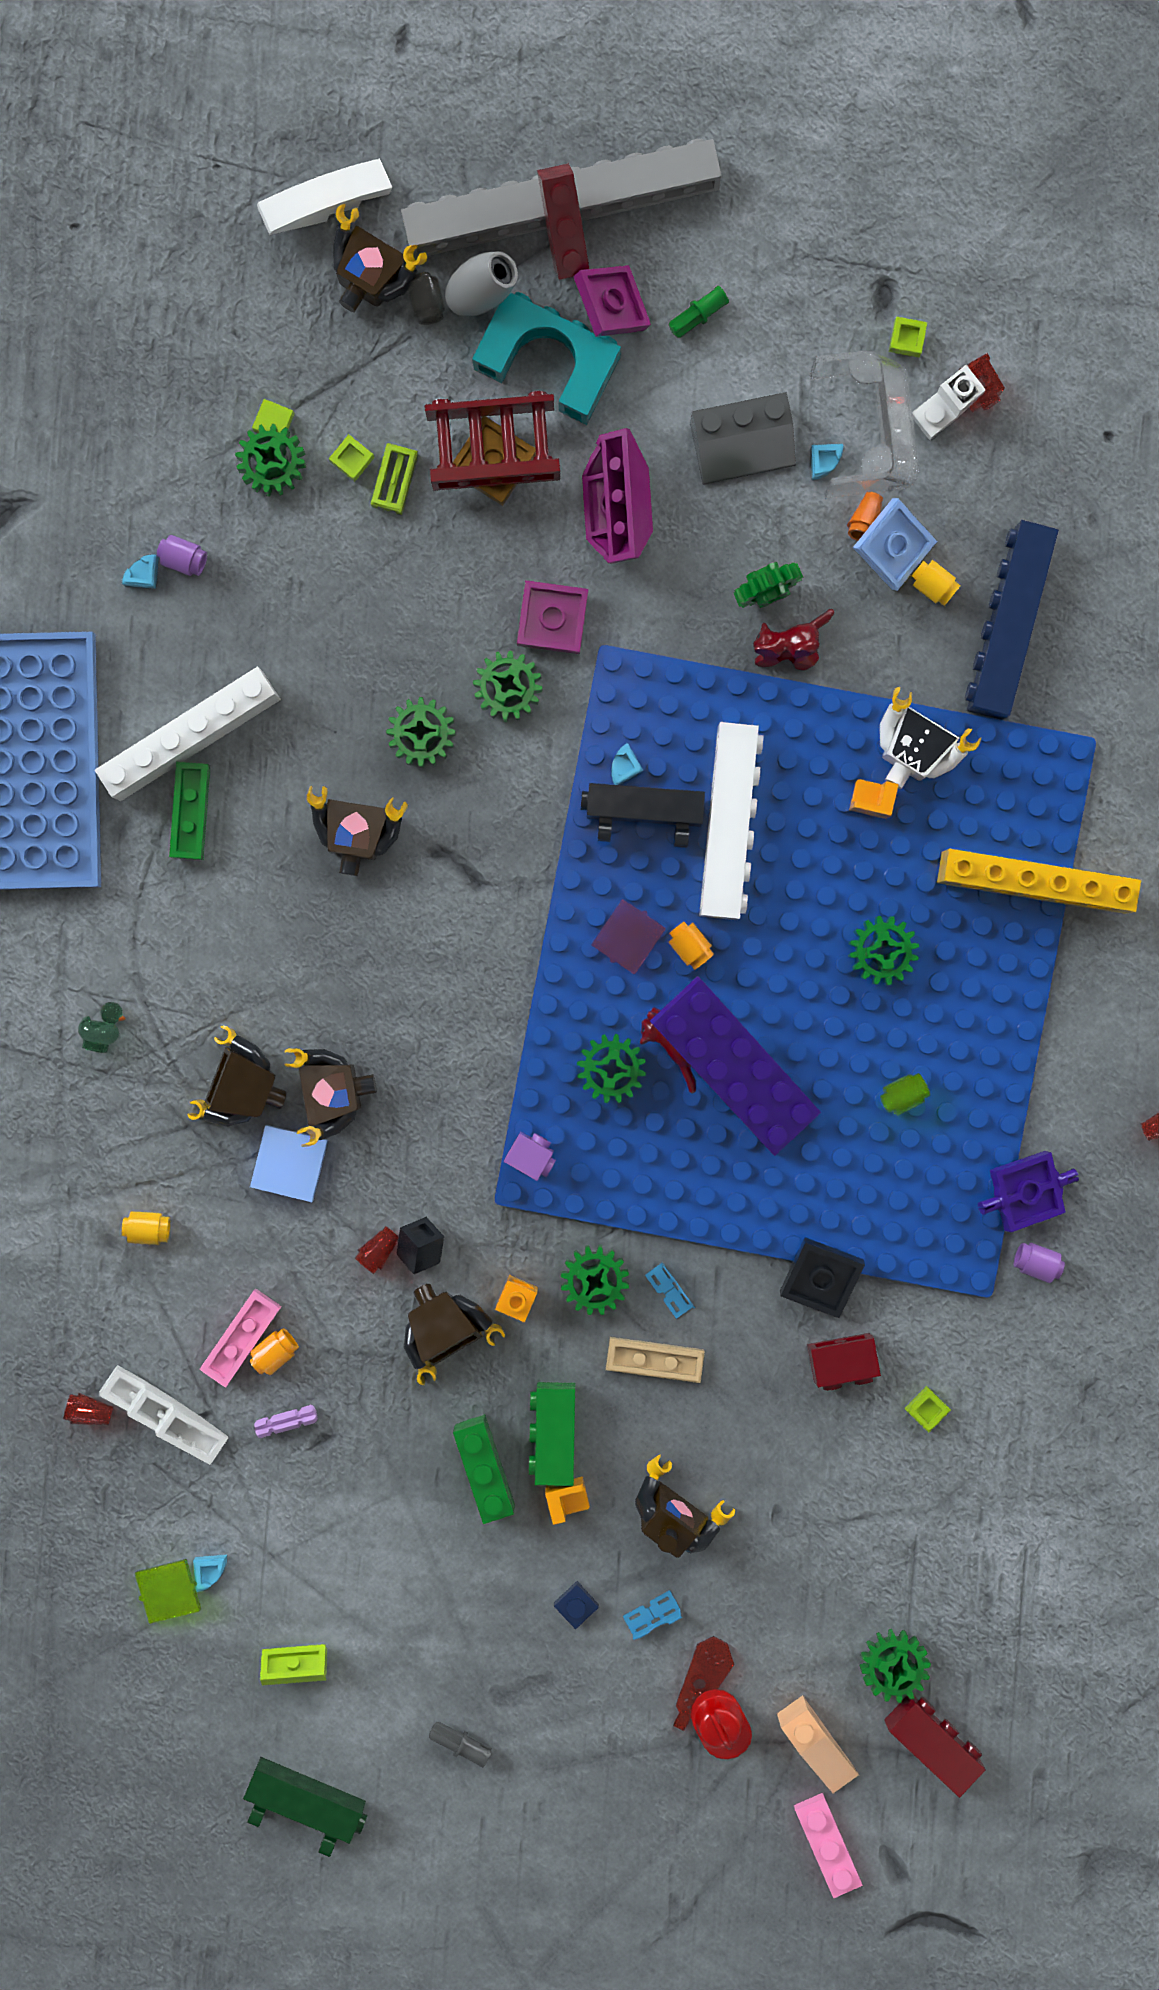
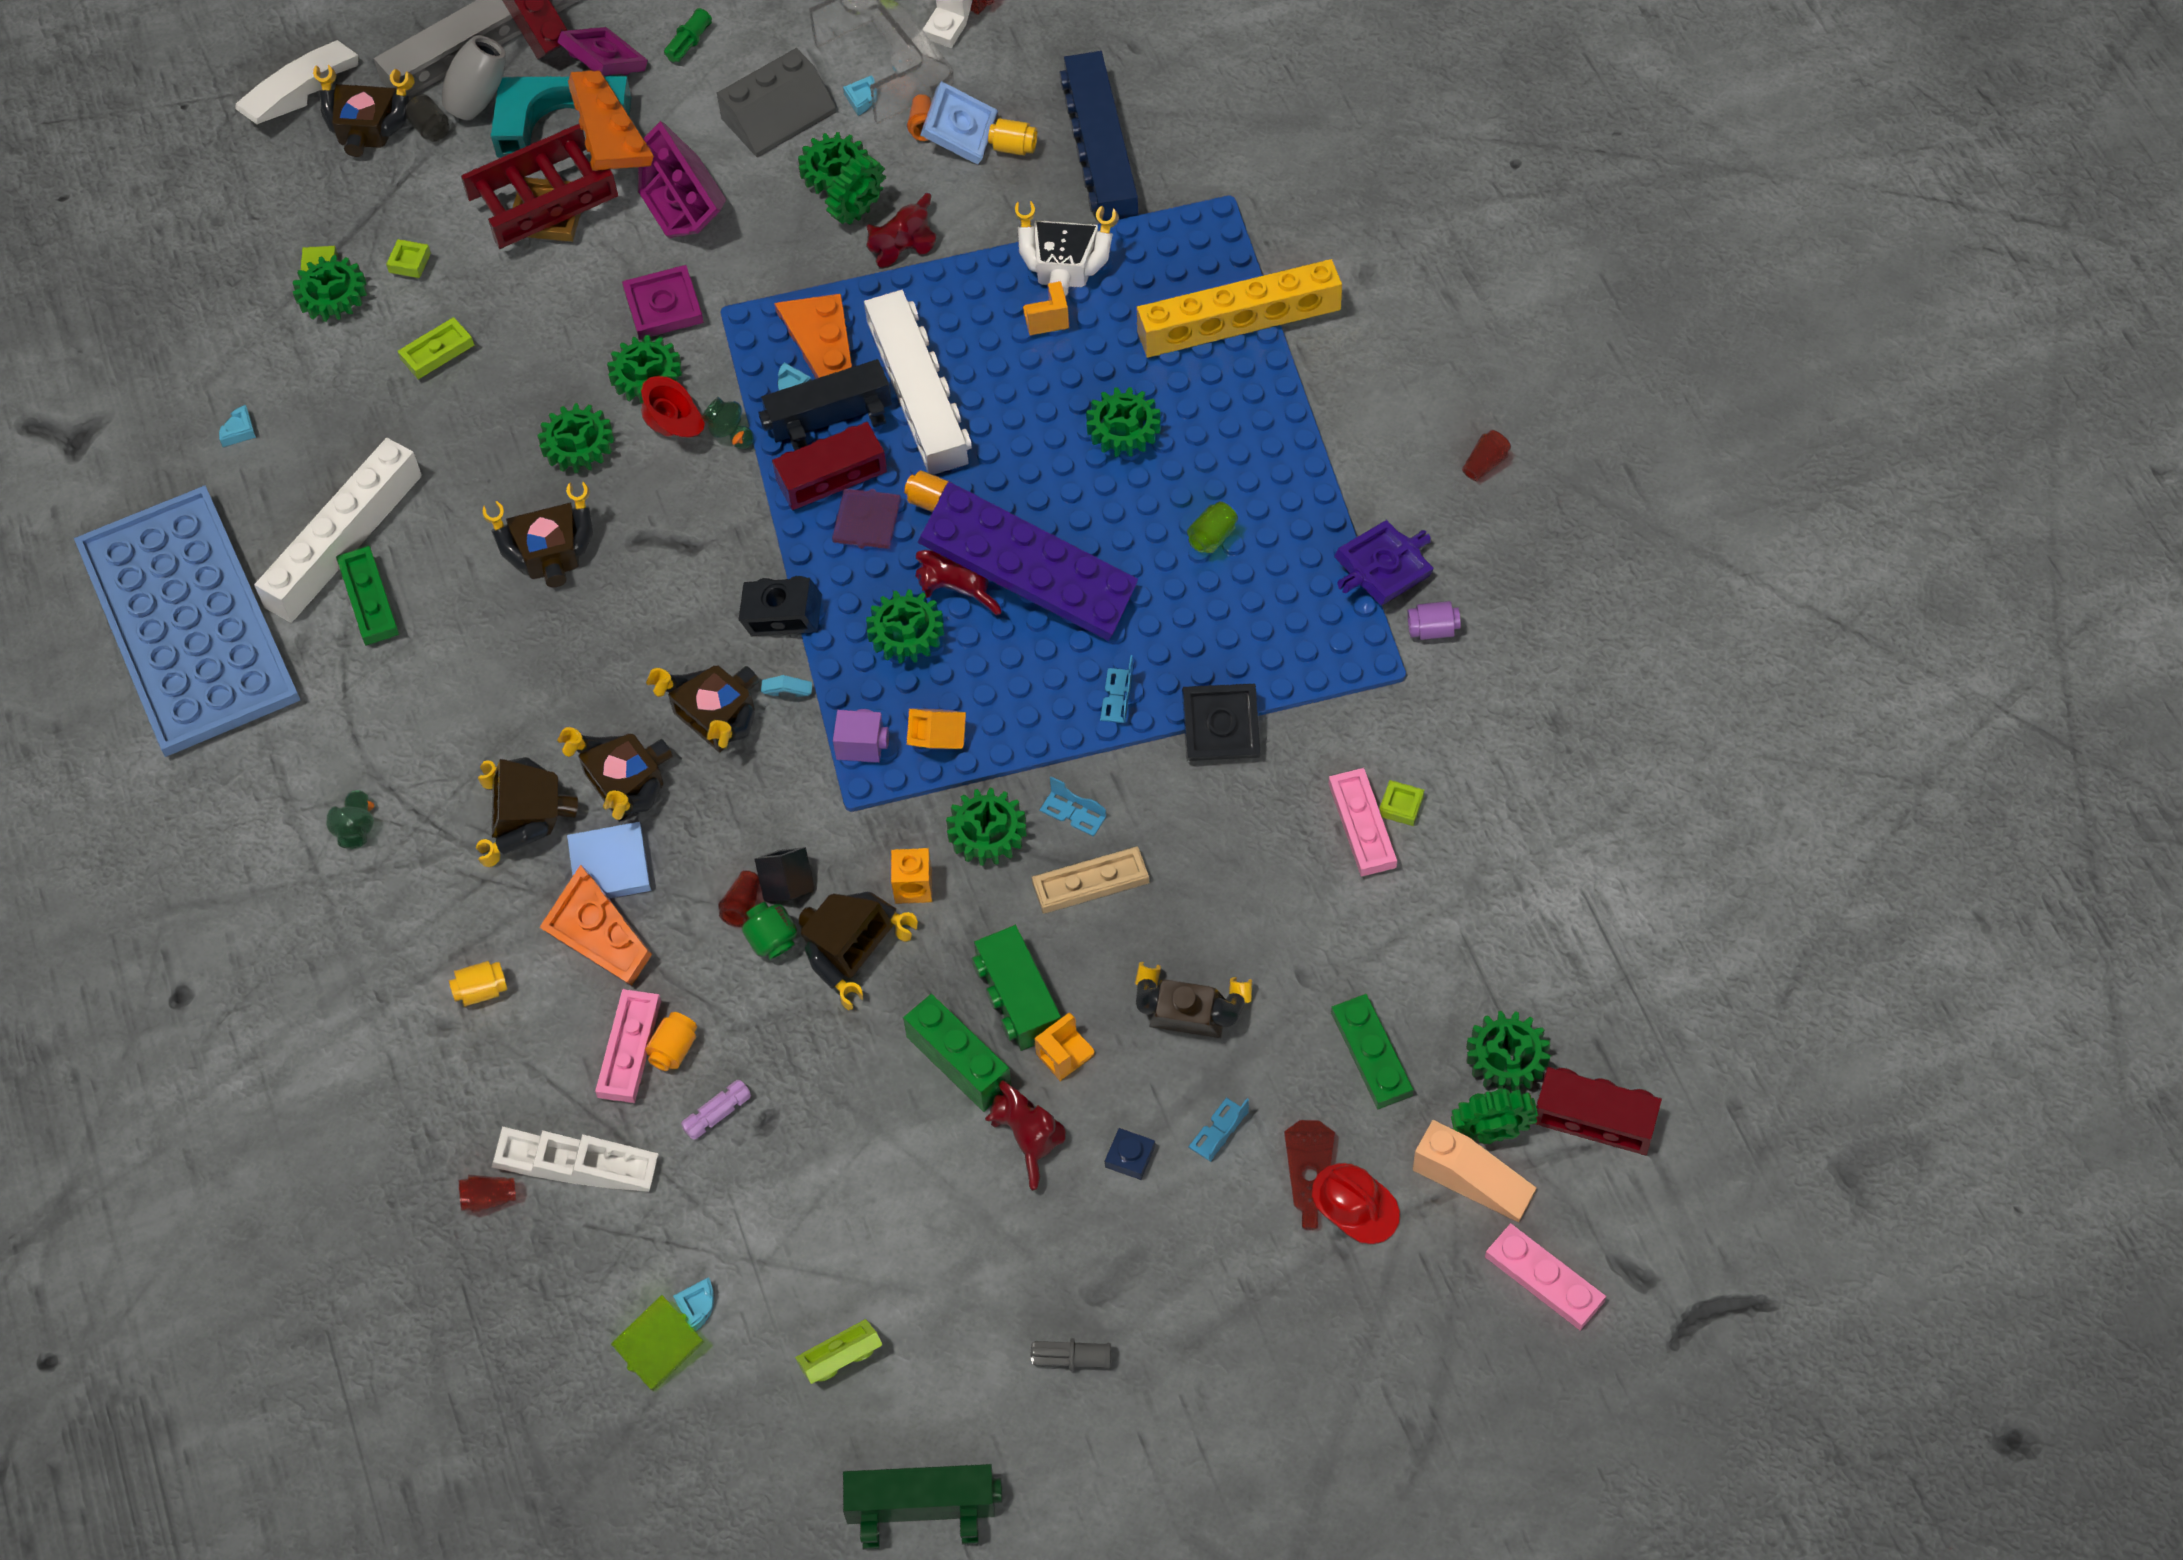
camera: 20 degrees left, 30 degrees down
(181, 555) = (272, 393): medium lavender brick -> none
(254, 1226) = (596, 929): none -> orange wing
(339, 572) = (435, 348): none -> lime plate
(386, 1294) = (769, 930): none -> green head
(387, 504) = (460, 280): lime tile -> none
(428, 1062) = (710, 702): none -> torso
(493, 1068) = (788, 684): none -> medium azure tile
(501, 993) = (765, 615): none -> black brick
(511, 748) = (670, 408): none -> red piece
(512, 1559) = (1032, 1127): none -> dark red animal
(551, 777) = (724, 420): none -> clear green animal
(577, 414) = (607, 127): none -> orange wing
(593, 1177) = (936, 728): none -> light orange panel
(619, 873) = (829, 465): none -> dark red brick
(671, 726) = (819, 332): none -> orange wing
(755, 1202) = (1117, 694): none -> dark azure piece
(757, 523) = (828, 158): none -> green gear
(795, 1608) = (1372, 1051): none -> green plate
(844, 1361) = (1286, 789): dark red brick -> none
(854, 1725) = (1495, 1115): none -> green gear
(888, 1416) = (1362, 822): none -> bright pink plate

